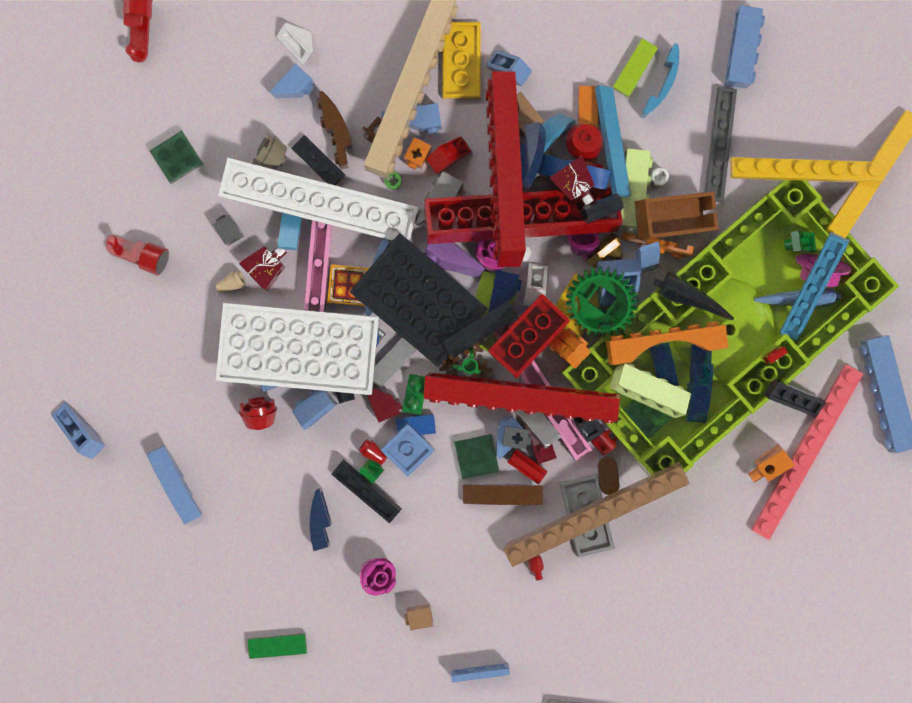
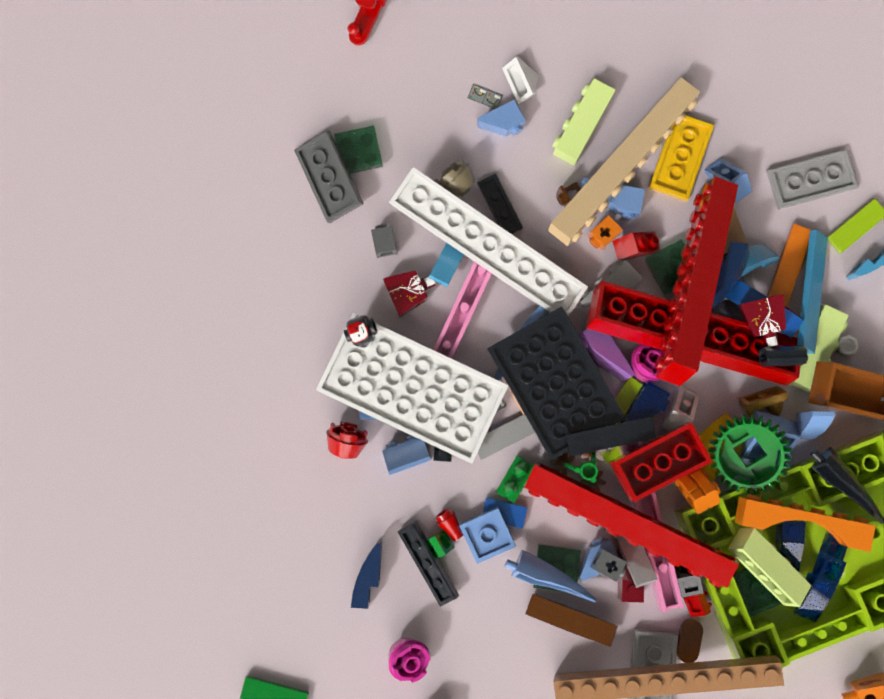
camera: 25 degrees right, 5 degrees down
(77, 431) = (153, 392): medium blue slope -> none
(147, 256) = (292, 238): red piece -> none
(159, 190) = (328, 176): none -> dark grey tile
(174, 484) = (230, 482): medium blue slope -> none
(232, 281) = (367, 295): tan cone -> none
(234, 316) = (360, 330): none -> head
(270, 68) = (484, 96): none -> light grey sticker
(334, 122) = (532, 173): reddish brown slope -> none
(341, 282) = (481, 336): tile -> none
(365, 60) = (585, 119): none -> yellowish green brick
(384, 405) = (479, 479): dark red slope -> none
(398, 177) = (575, 250): bright green bush -> none
(460, 465) = (538, 572): none -> medium blue piece
(477, 162) = (665, 265): none -> clear green plate
(527, 466) = (607, 599): red axle -> none
(582, 39) = (812, 179): none -> light grey tile
(583, 244) = (746, 386): magenta piece -> none
(584, 140) = (783, 279): red cone -> none
(665, 246) = (838, 424): orange wing -> none

